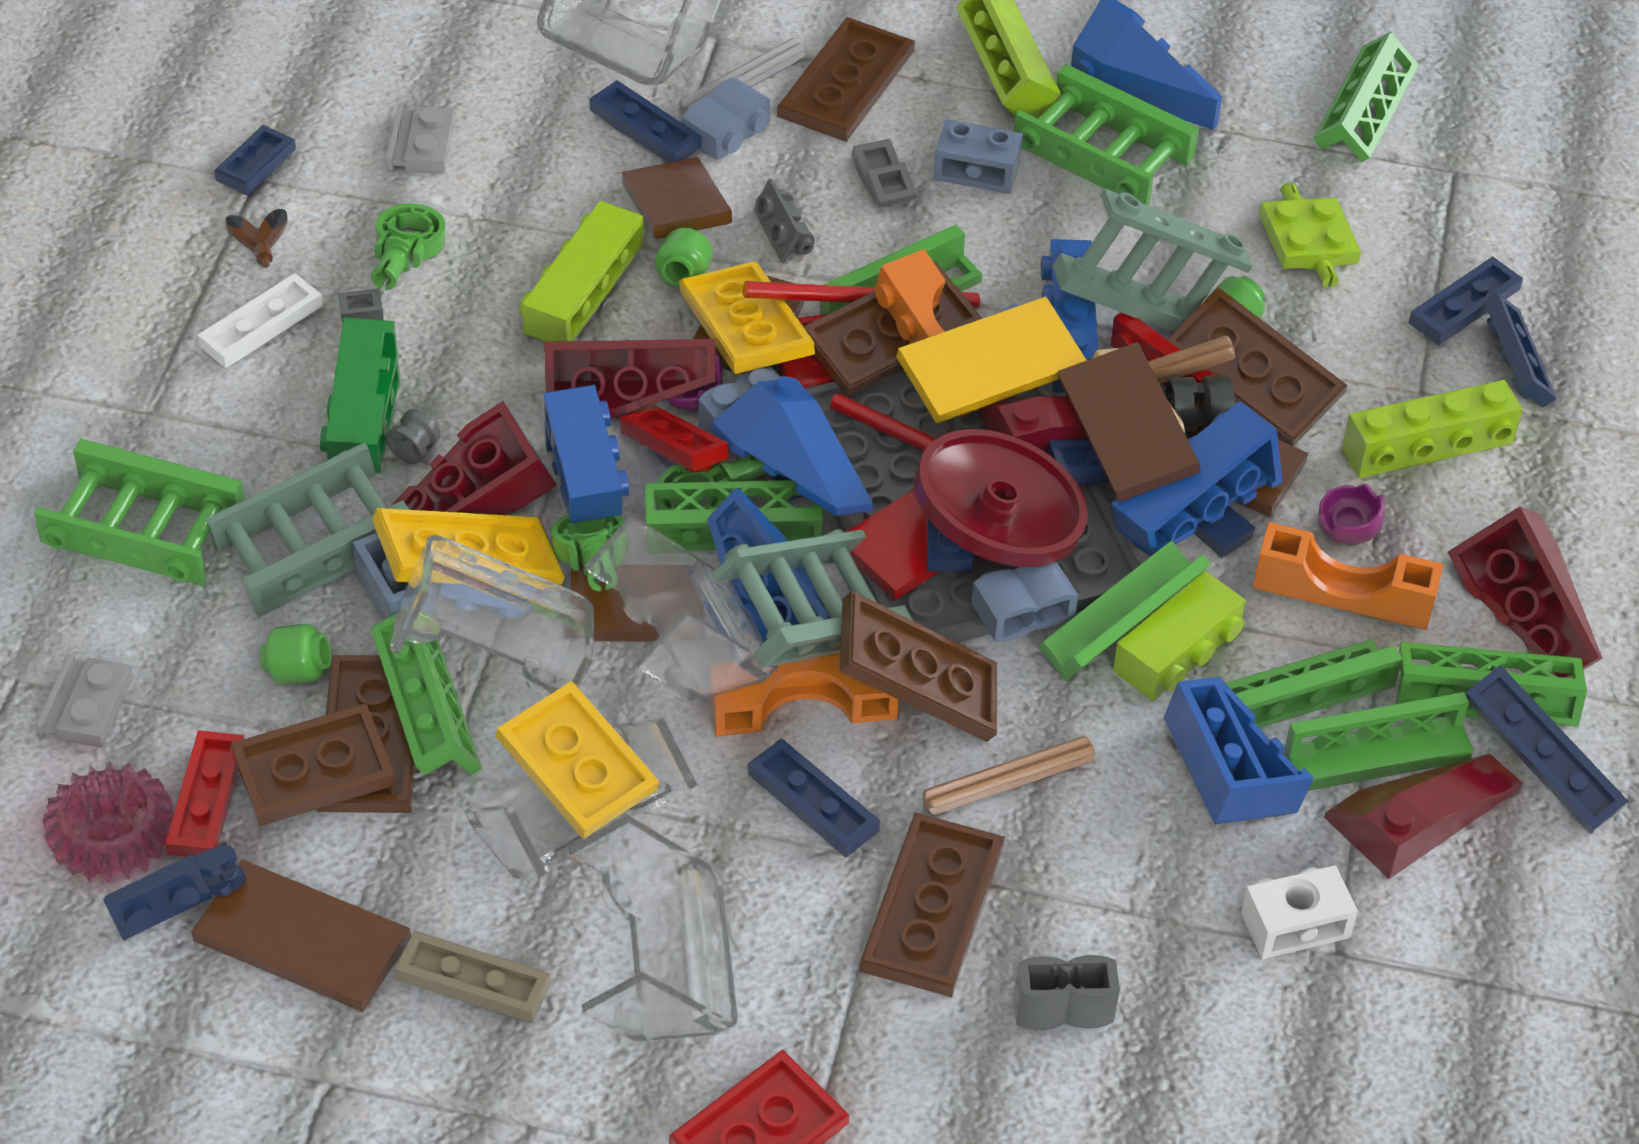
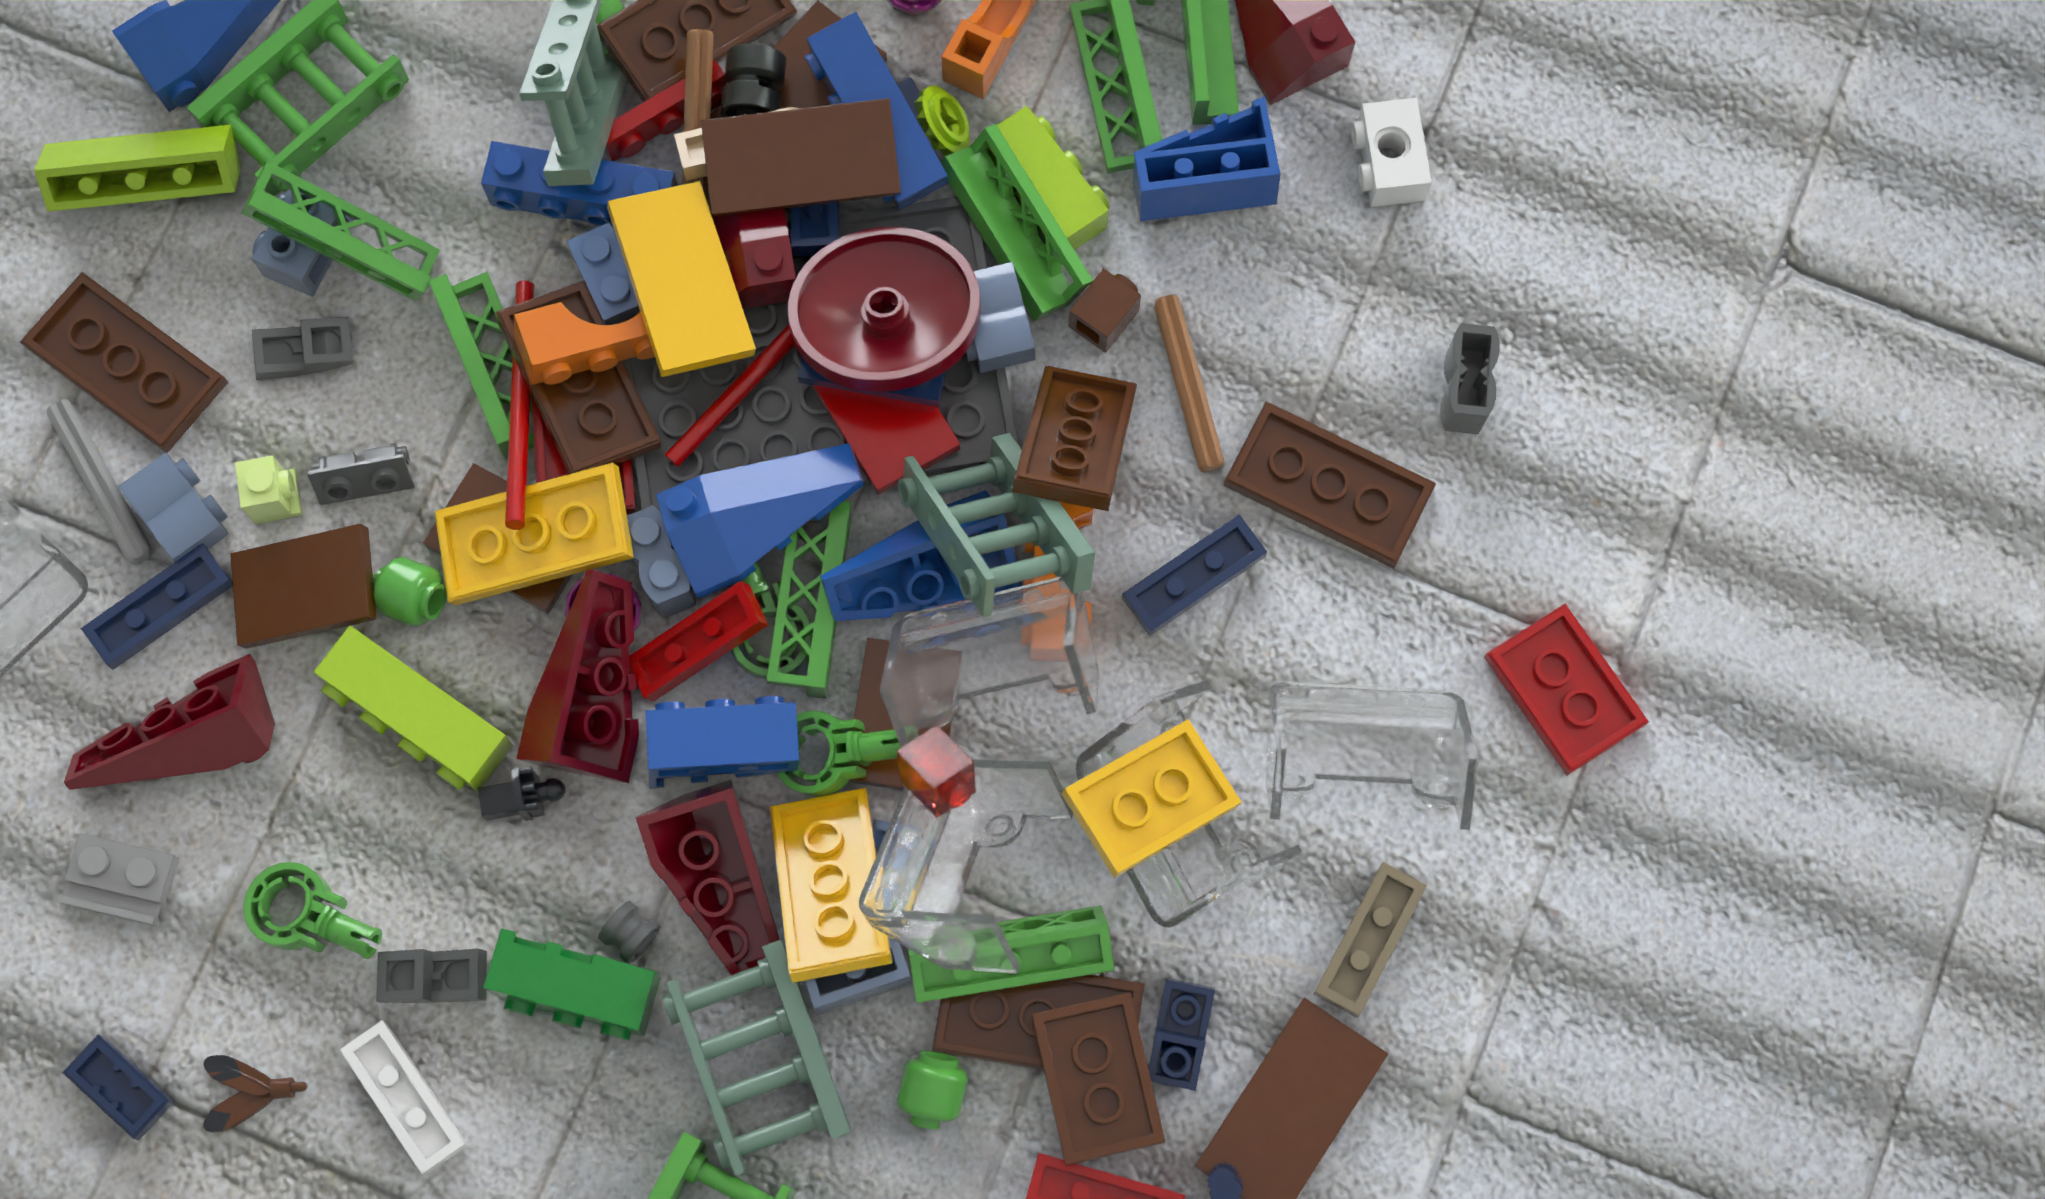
camera: 80 degrees left, 25 degrees up
(356, 840) = (1180, 1034): none -> dark blue slope
(523, 354) = (521, 796): none -> black piece
(544, 157) = (203, 732): none -> dark red wedge
(571, 584) = (936, 771): none -> clear red brick
(751, 164) = (267, 490): none -> yellowish green brick
(970, 154) = (337, 241): none -> bright green fence
(1062, 695) = (1105, 309): none -> reddish brown brick
(1229, 556) = (942, 120): none -> lime gear

